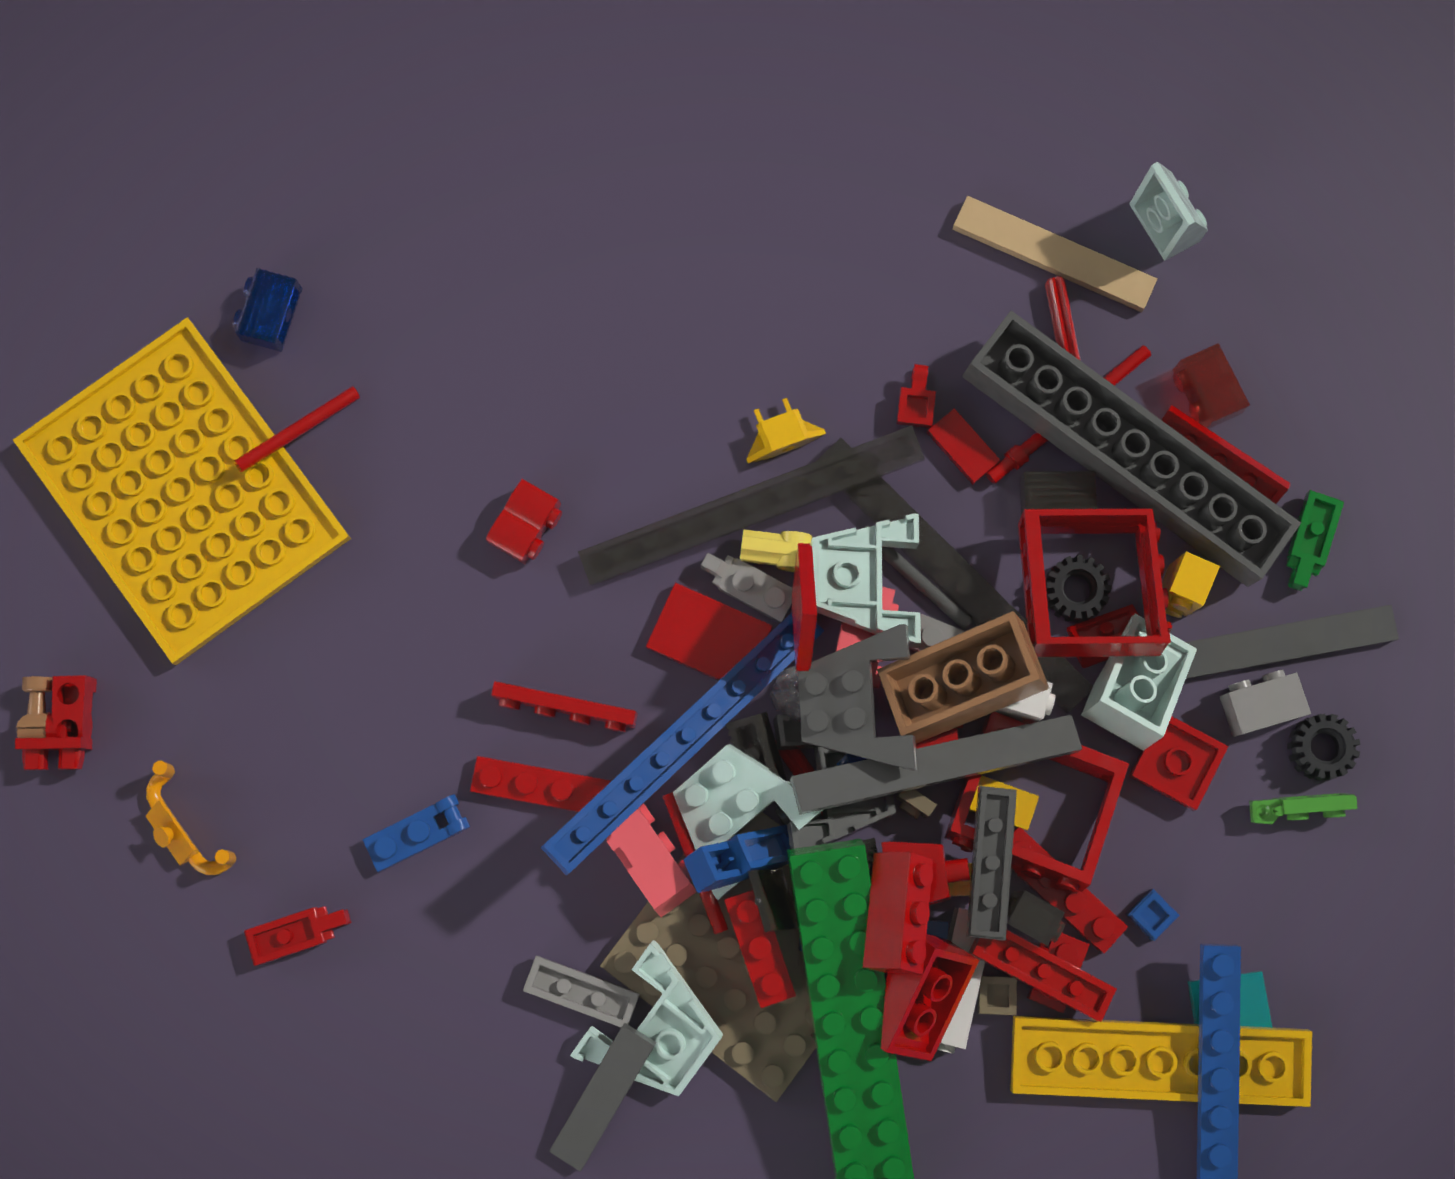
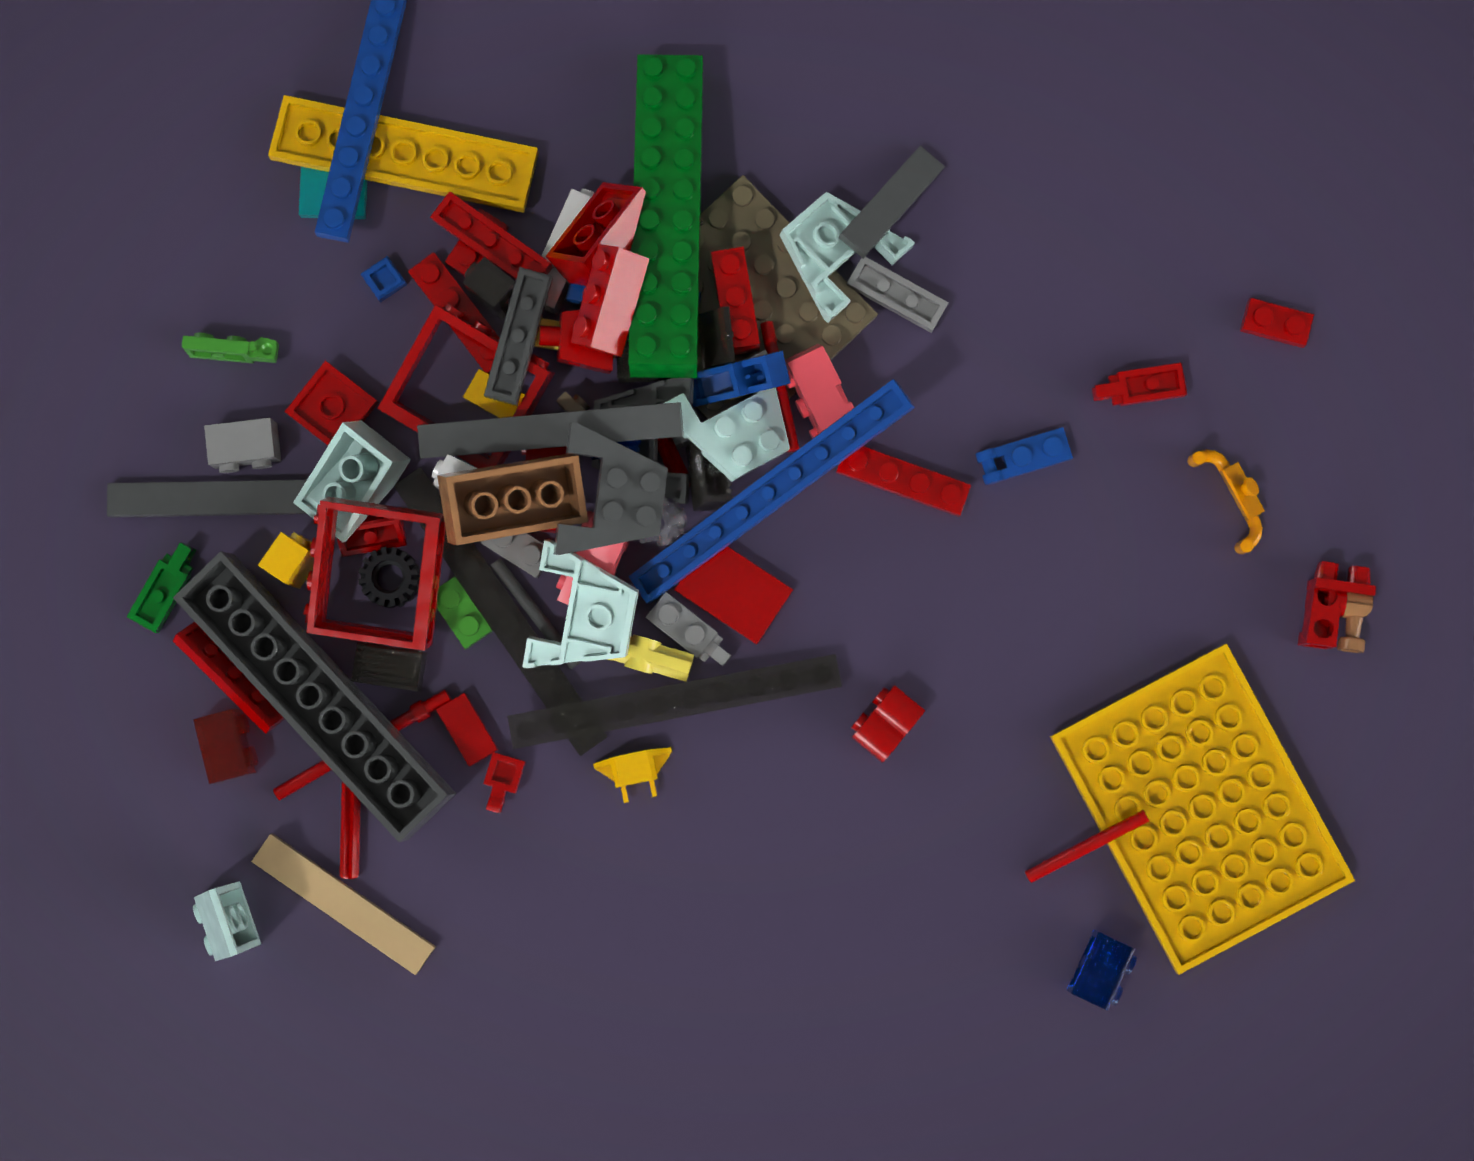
camera: 170 degrees left, 5 degrees up
(152, 1032) = (1276, 322): none -> red plate
(549, 703) = (889, 550): red plate -> none
(804, 607) = (644, 589): red tile -> none
(993, 564) = (461, 613): none -> bright green plate
(997, 995) = (534, 230): dark tan plate -> none
(1342, 737) = (185, 384): black tyre -> none

